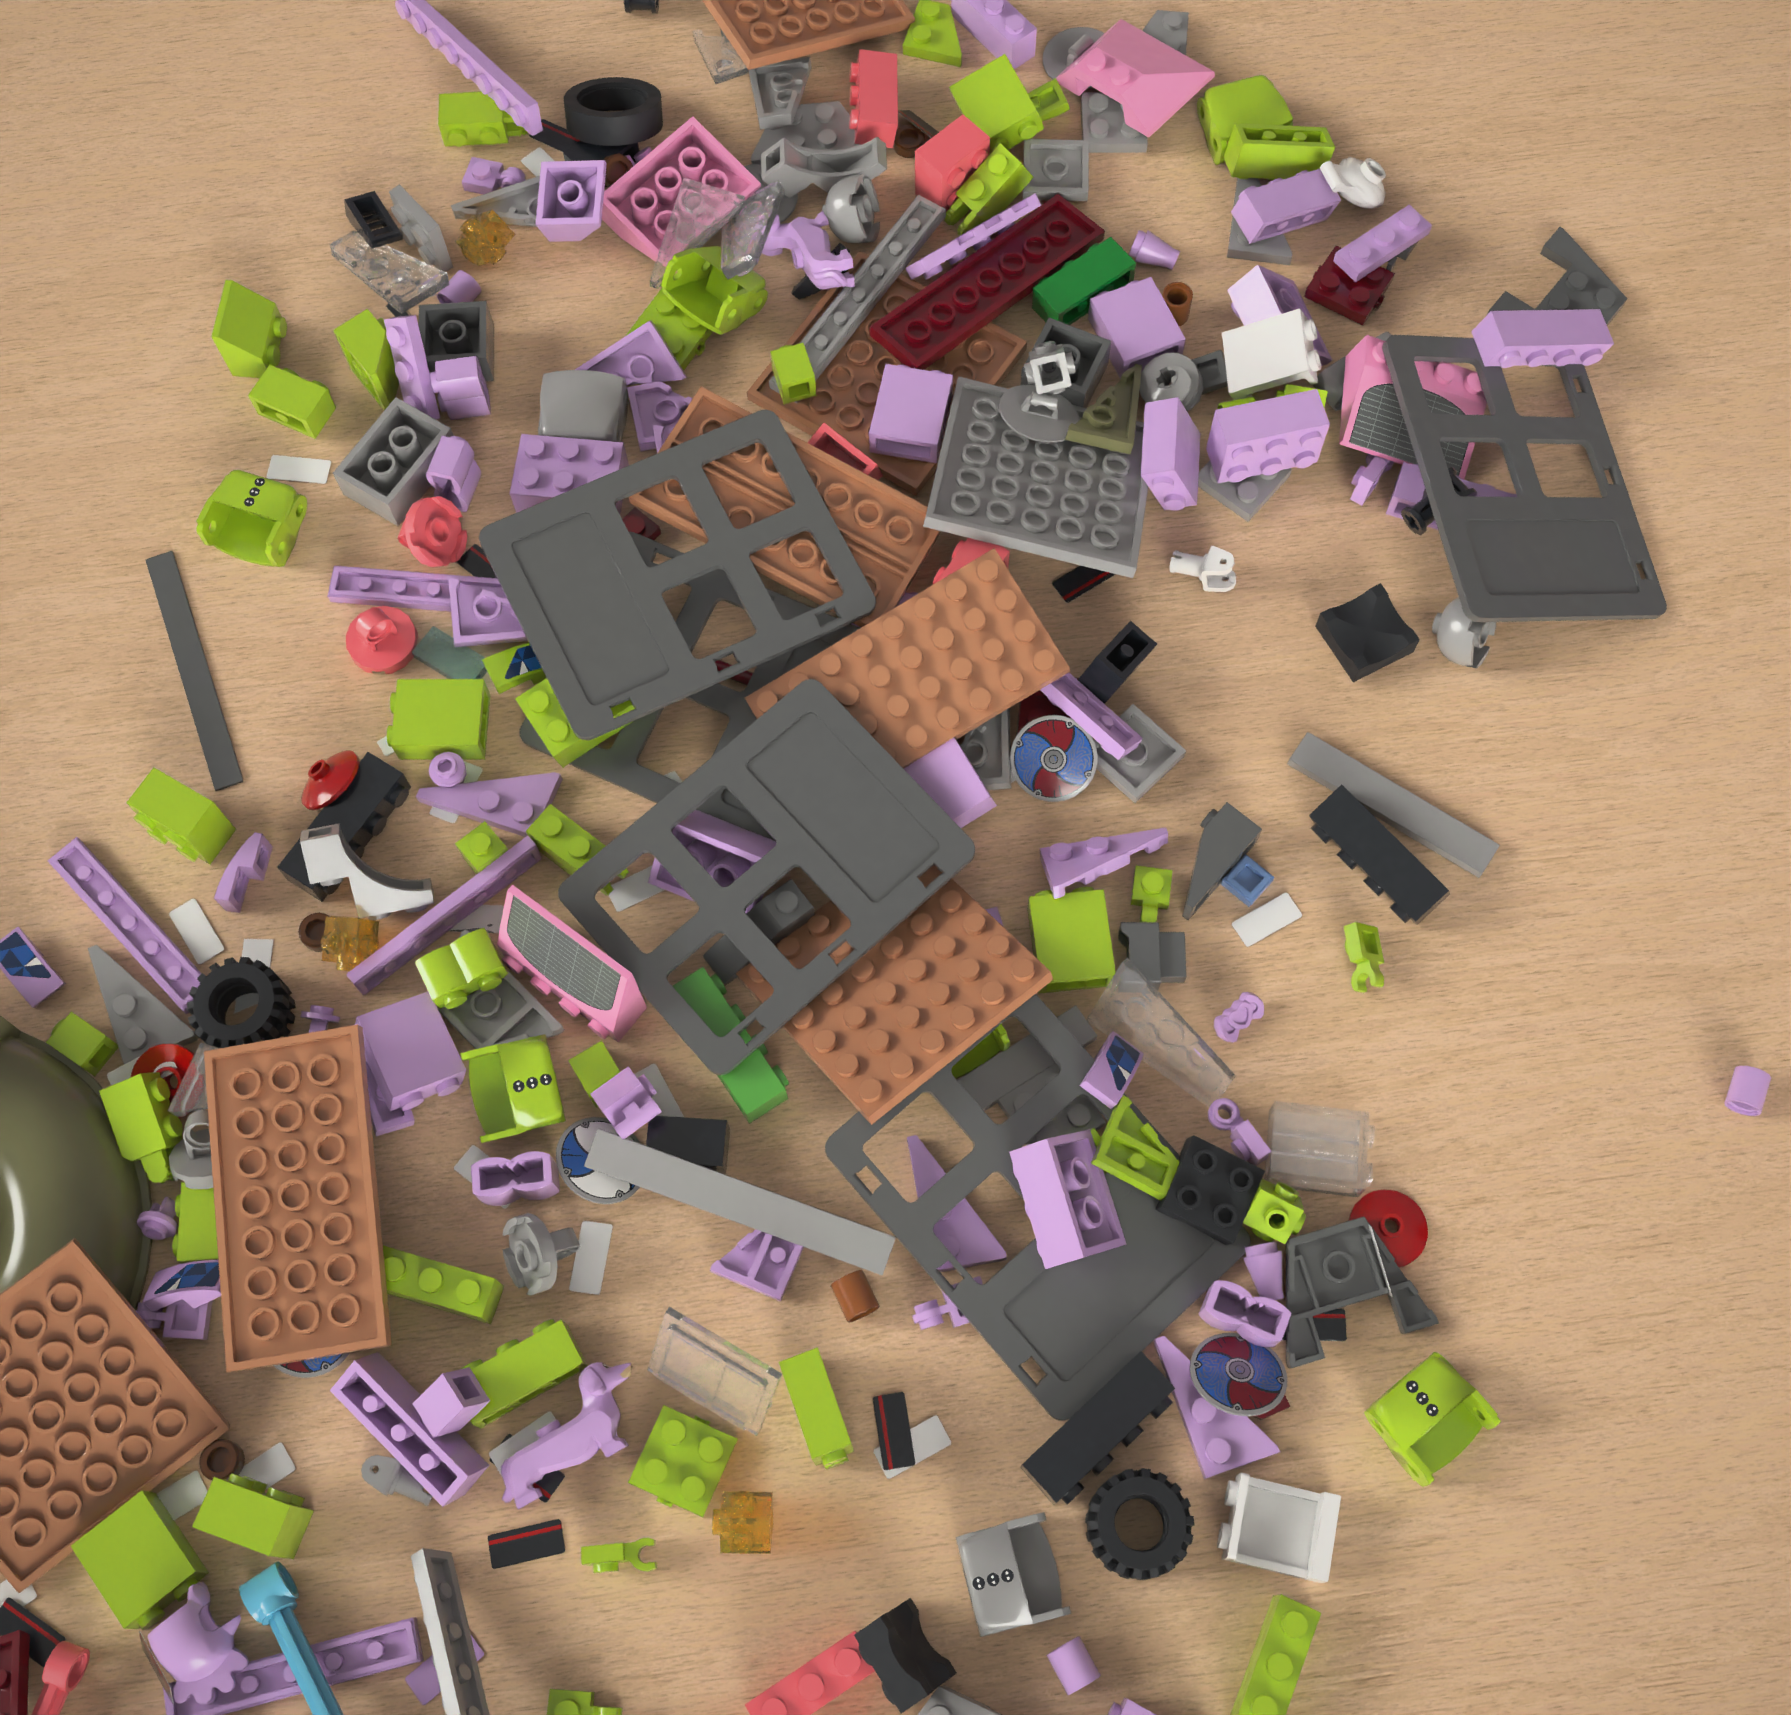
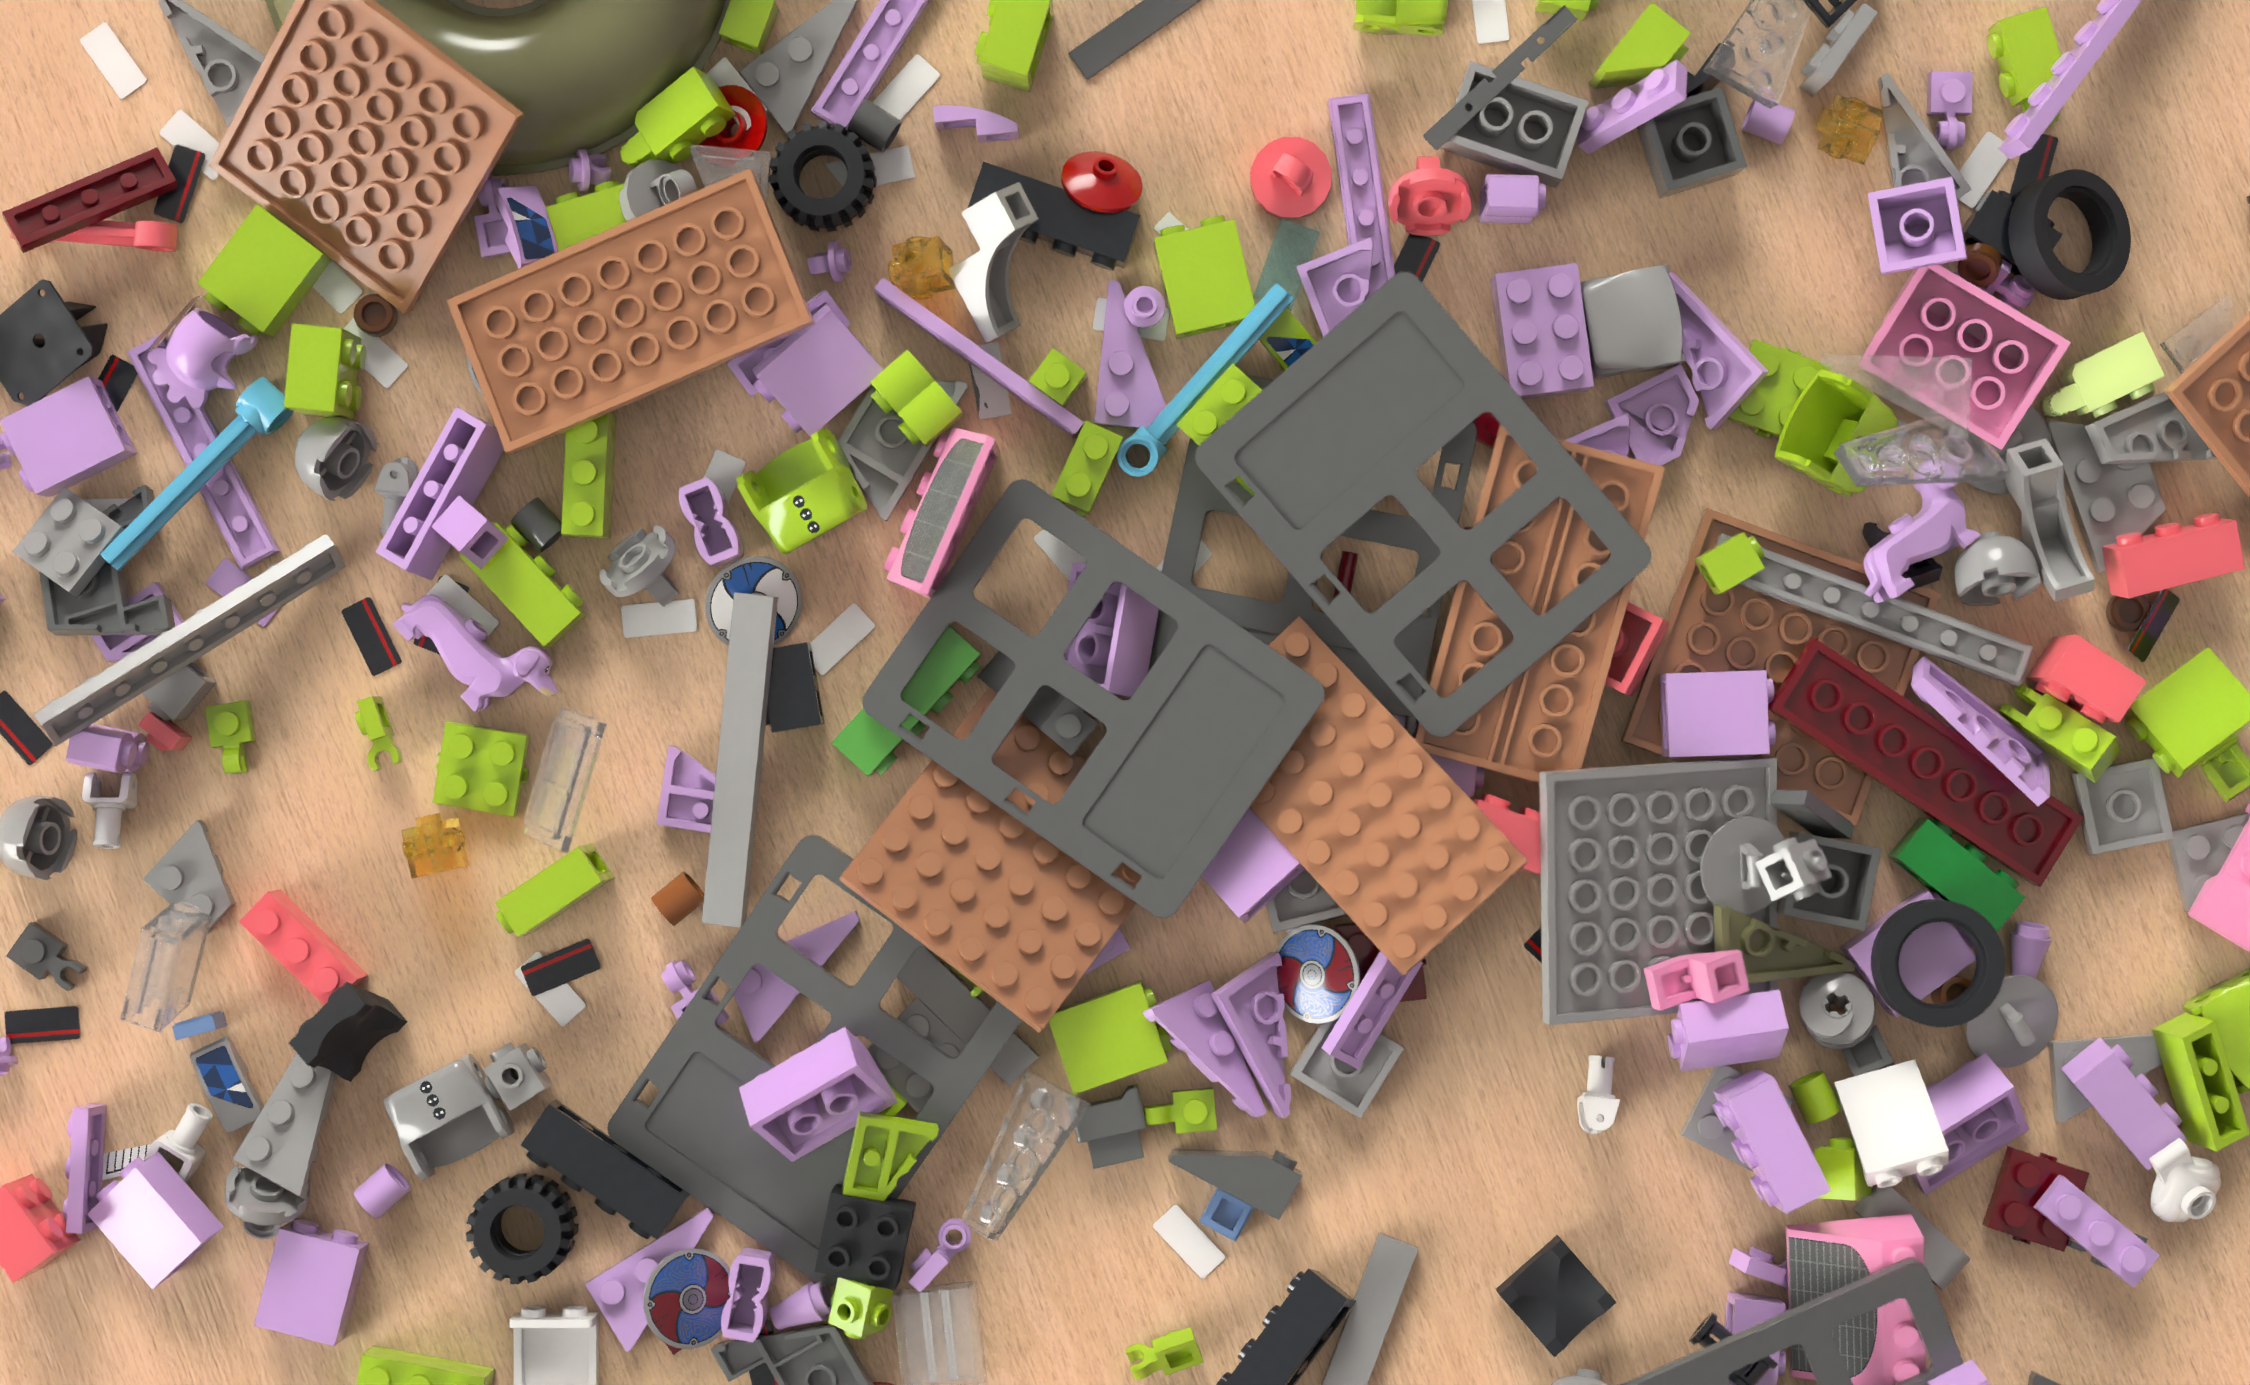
camera: 80 degrees right, 20 degrees up
(213, 952) = (874, 125): none -> dark grey beam
(312, 930) = (933, 221): reddish brown tile -> none
(337, 1532) = (334, 455): none -> light grey cylinder
(351, 449) = (1504, 73): none -> dark grey piece
(461, 388) = (1625, 170): lavender brick -> none
(469, 1345) = (538, 524): none -> dark grey beam
(558, 782) = (1229, 352): none -> medium azure piece
(594, 1068) = (842, 575): lime brick -> none
(627, 1102) = (810, 618): lavender brick -> none
(728, 115) = (2104, 377): none -> yellowish green hinge
(1001, 1485) = (503, 1082): none -> light grey brick
(1006, 363) = (1812, 813): none -> dark grey tile
(1091, 816) = (1256, 1021): none -> lavender wing
(1112, 1070) = (968, 1113): lavender slope -> none
(1117, 662) = (1444, 1022): black brick -> none
(1121, 458) = (1700, 976): none -> bright pink slope
(1154, 262) = (1987, 976): none -> black tyre
(1204, 270) = (2015, 1023): none -> light grey shield
(1238, 1016) = (1067, 1231): lavender piece -> none

